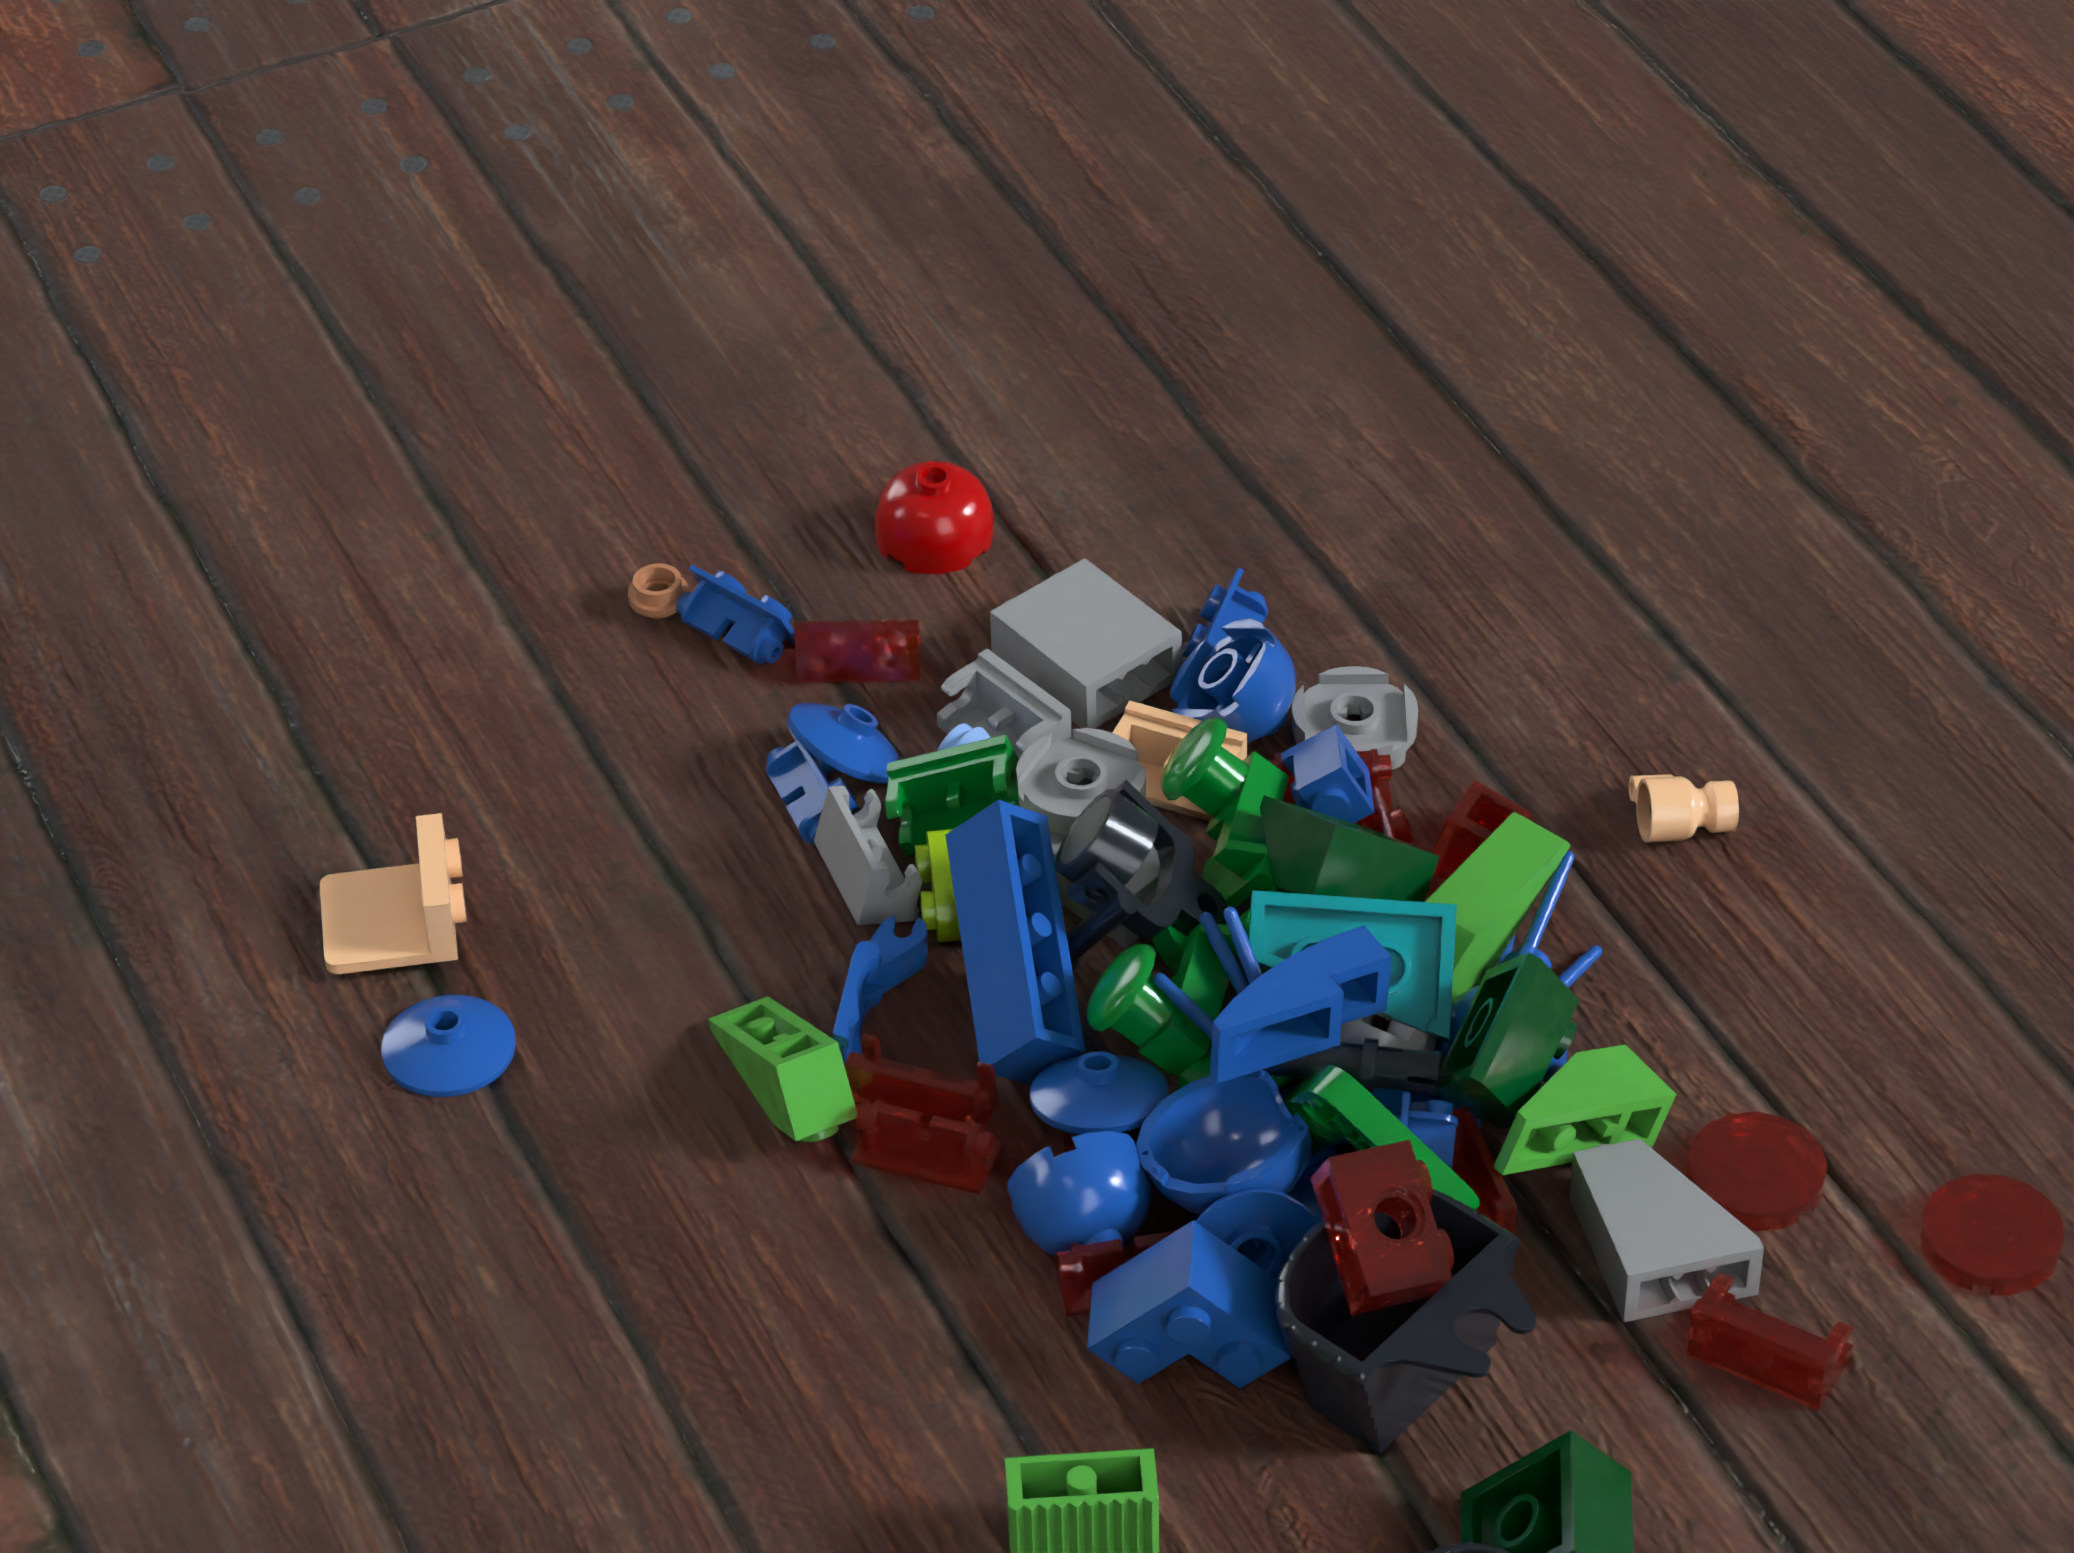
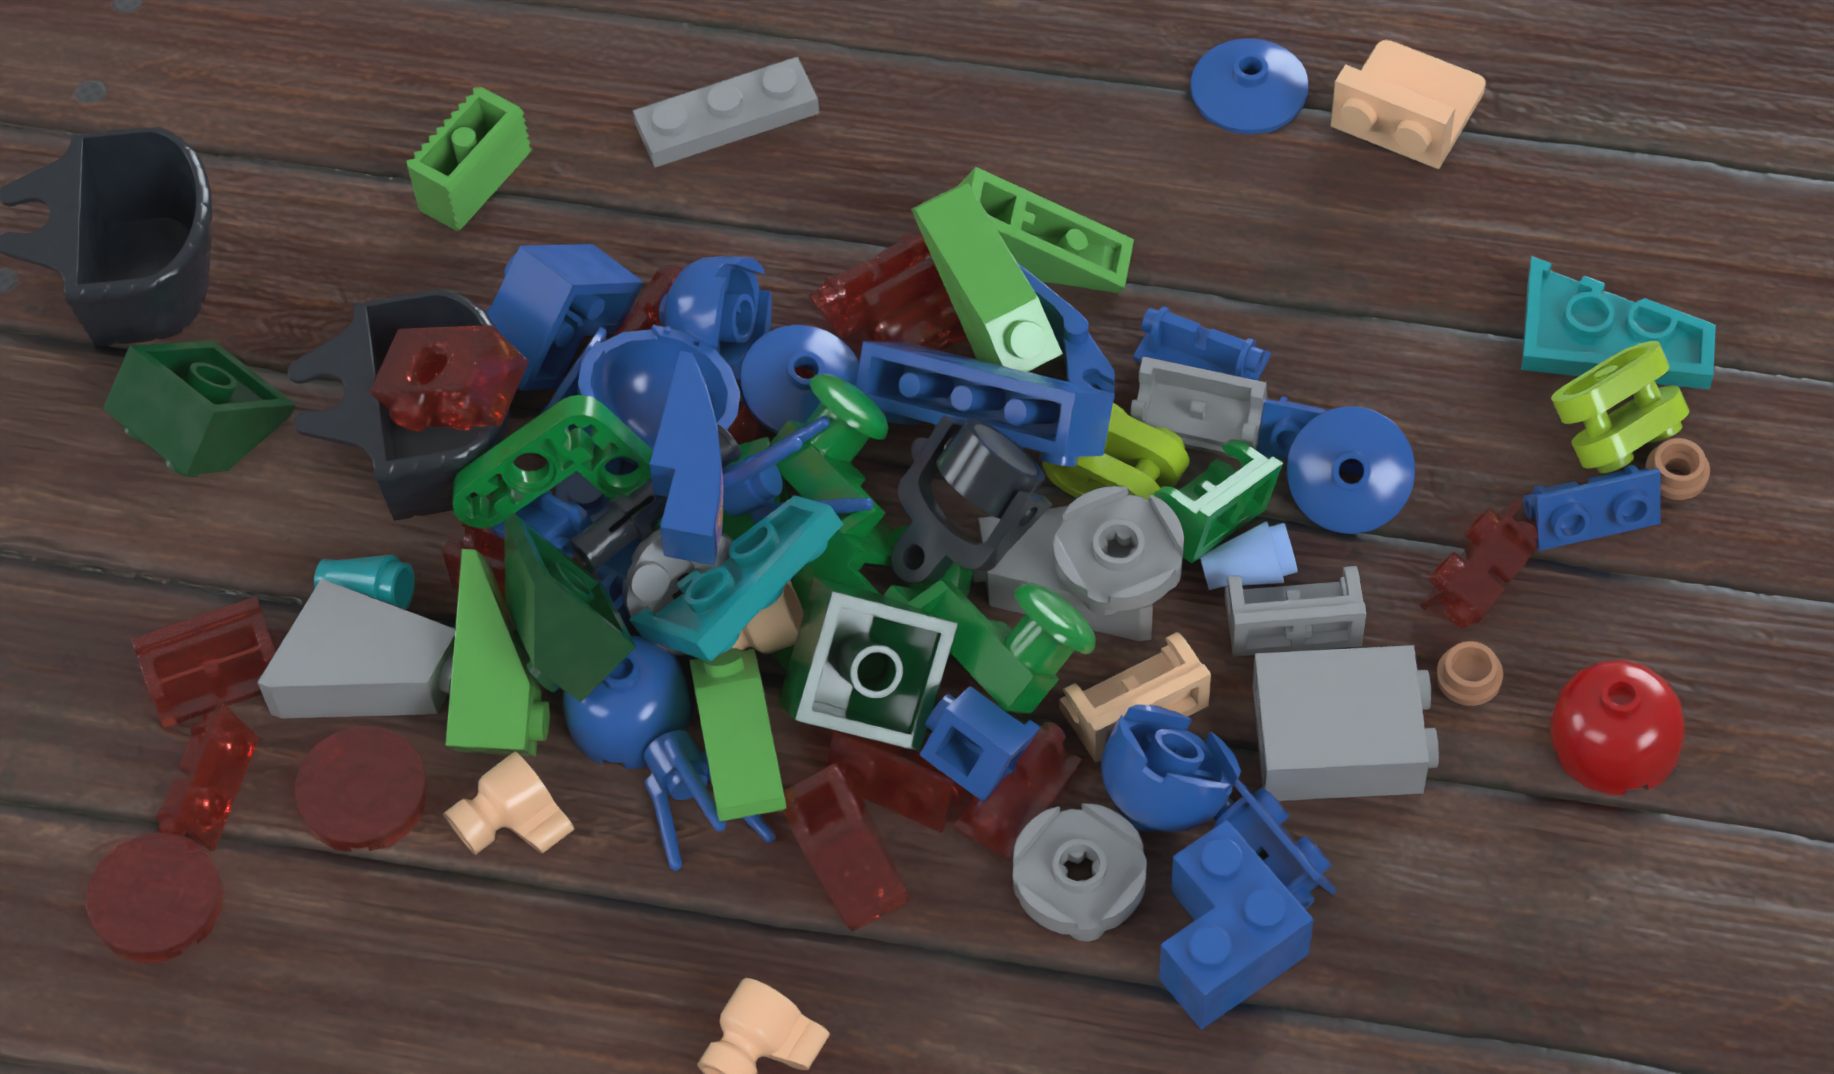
camera: 130 degrees right, 15 degrees up
(555, 683) = (1580, 325): none -> teal wing
(637, 622) = (1647, 418): none -> lime brick
(798, 899) = (1189, 344): none -> blue hinge
(818, 1390) = (726, 112): none -> light grey plate
(898, 1000) = (985, 282): none -> bright green slope
(963, 610) = (1469, 674): none -> nougat plate
(1329, 600) = (1242, 929): none -> blue brick
(1582, 1285) = (374, 576): none -> teal cone
(1676, 1061) = (509, 798): none -> light nougat piece
(1840, 1273) = (216, 767): none -> clear red hinge

